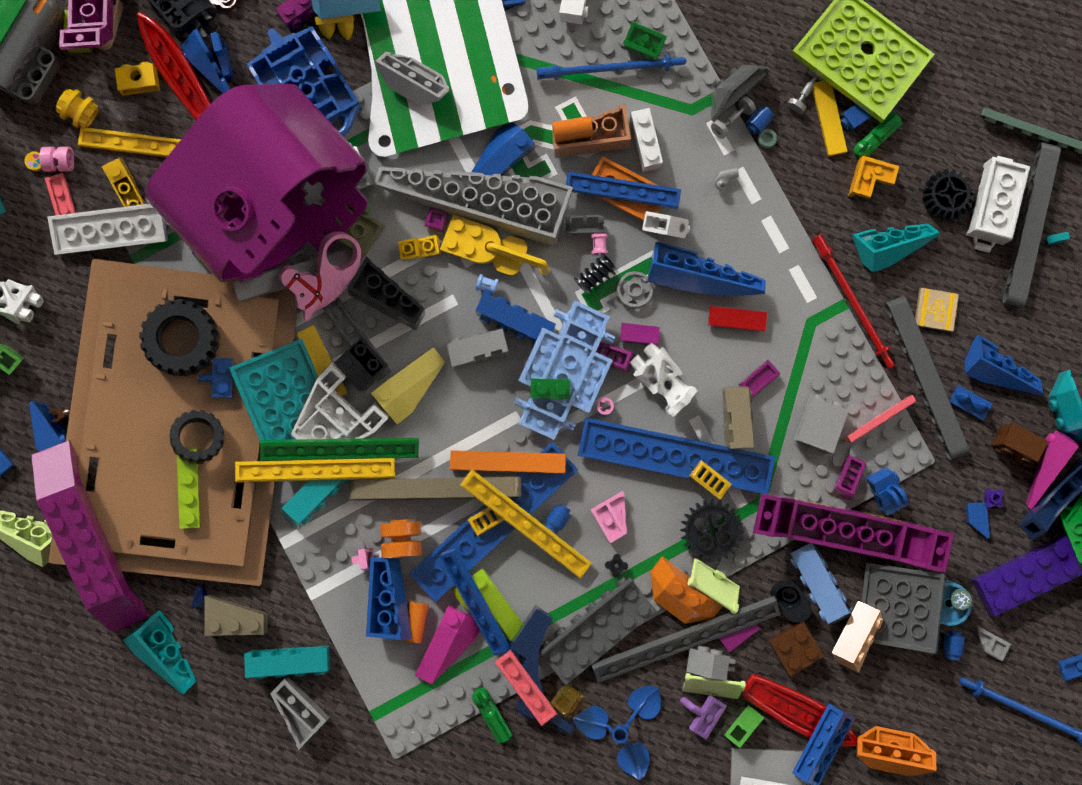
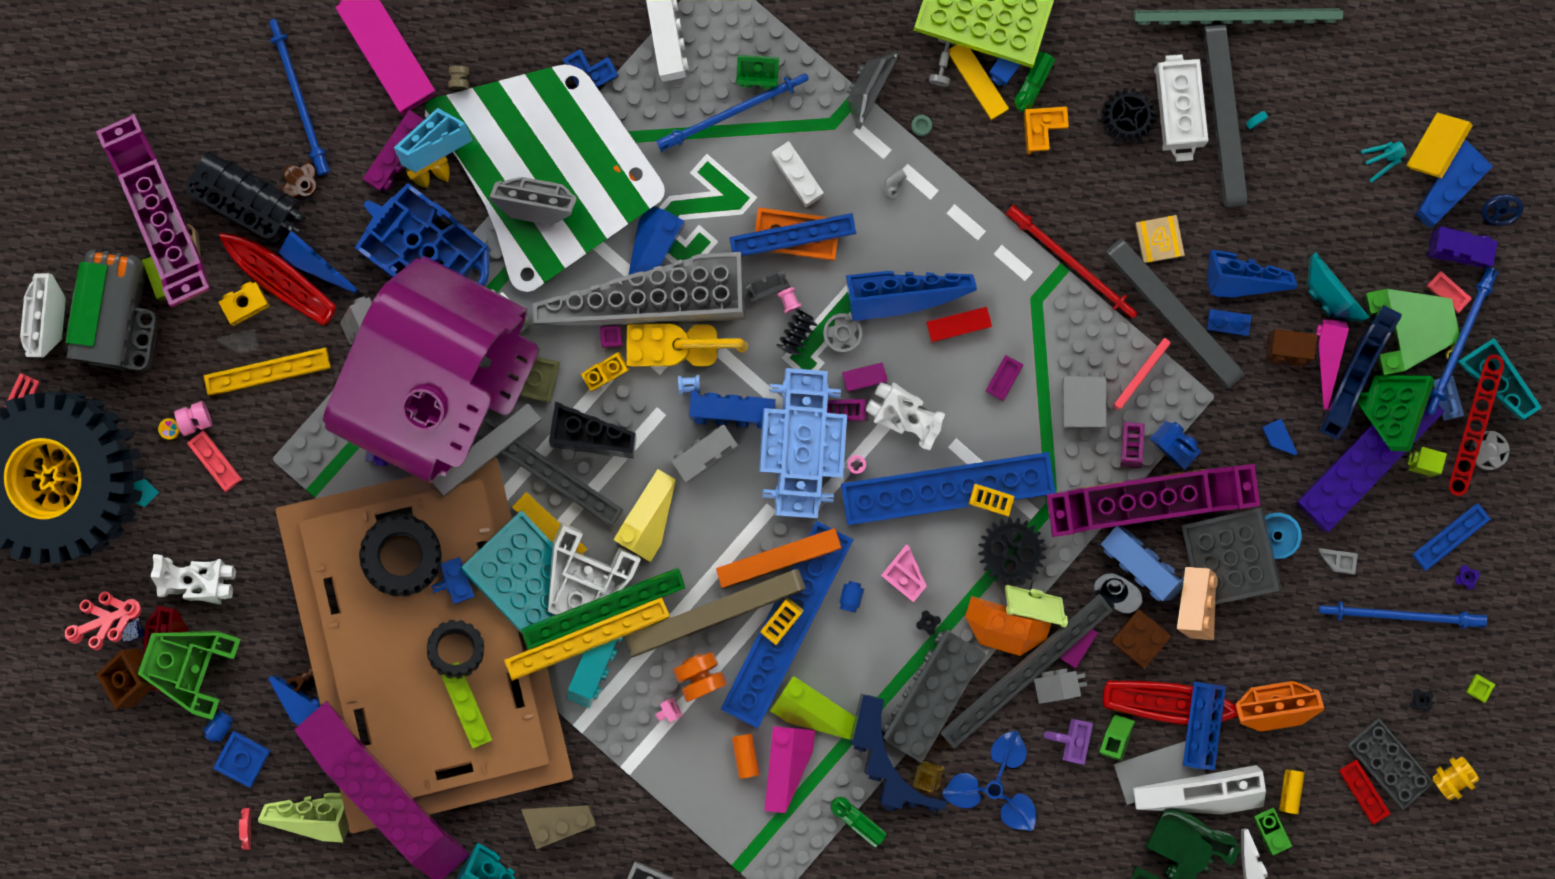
camera: 20 degrees left, 0 degrees up
(73, 106) = (194, 358): yellow piece -> none
(106, 229) = (275, 471): white plate -> none
(123, 183) = (276, 421): yellow slope -> none
(199, 597) = (515, 813): clear blue slope -> none
(222, 54) = (325, 248): blue tile -> none
(287, 661) = (631, 844): teal wedge -> none
(323, 286) = (525, 441): bright pink animal -> none
(361, 364) = (593, 514): black slope -> none
(387, 601) = (708, 744): blue wedge -> none
(475, 602) = (799, 712): blue tile -> none
(525, 523) = (821, 614): yellow tile -> none
(526, 687) = (882, 778): coral tile -> none
(550, 388) = (794, 467): green plate -> none
(572, 129) = (718, 193): orange brick -> none
(609, 133) = (742, 188): nougat wedge -> none
(674, 225) = (860, 255): white torso -> none
(713, 687) = (1071, 708): yellowish green door -> none
(738, 417) = (996, 425): dark tan wedge -> none
(746, 106) = (887, 100): light grey wheel -> none
(759, 120) = (906, 109): blue brick -> none
(887, 248) = (1085, 195): teal wedge -> none
(953, 645) = (1299, 576): blue brick -> none
(961, 599) = (1287, 526): sand green tile -> none
(988, 498) = (1285, 417): dark purple plate -> none

